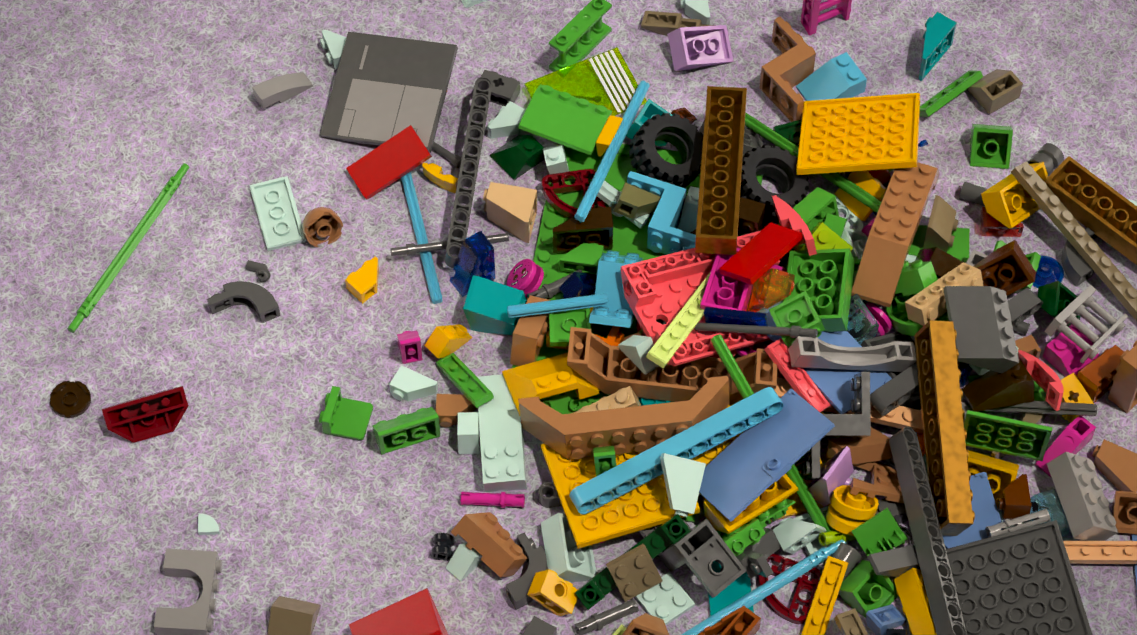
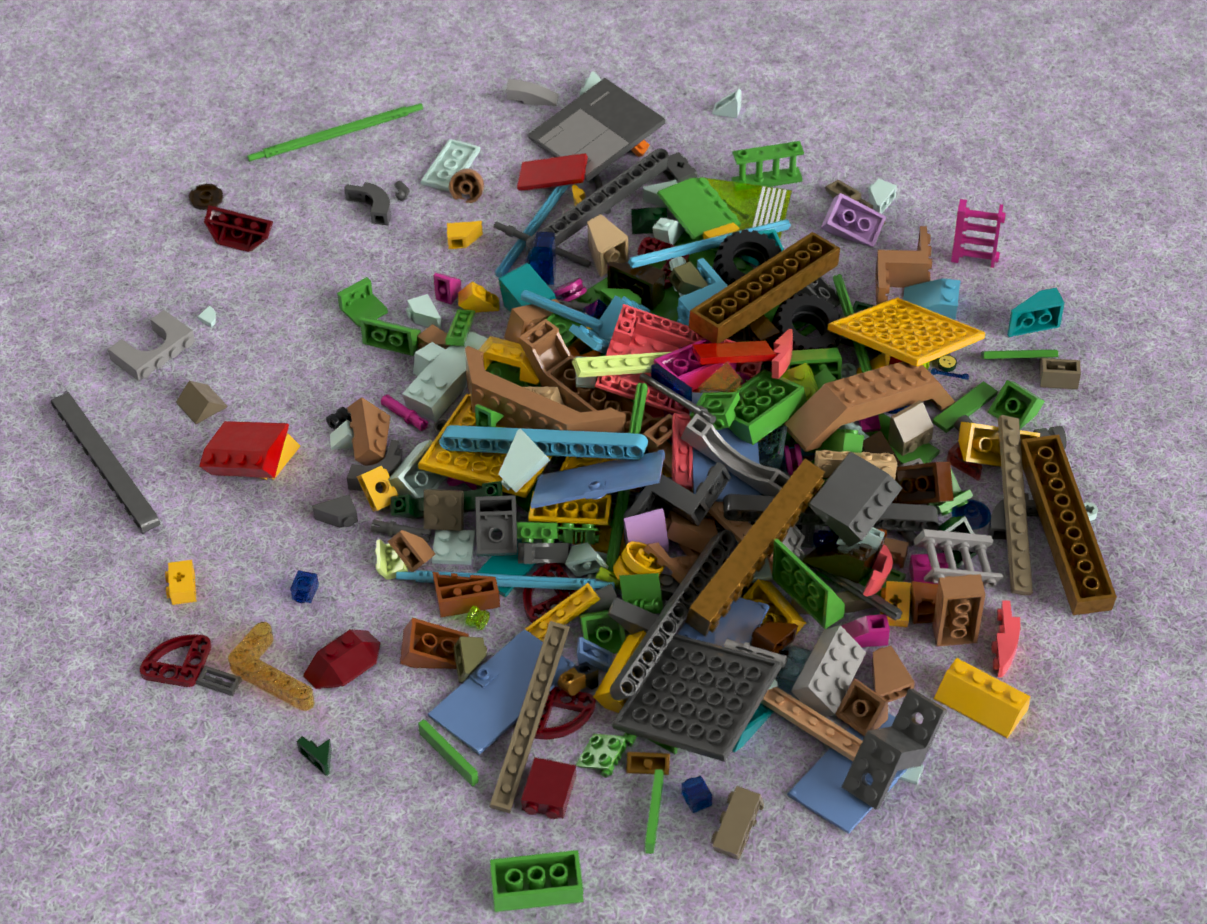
camera: 40 degrees right, 10 degrees down
(950, 171) = (965, 406): none -> bright green tile

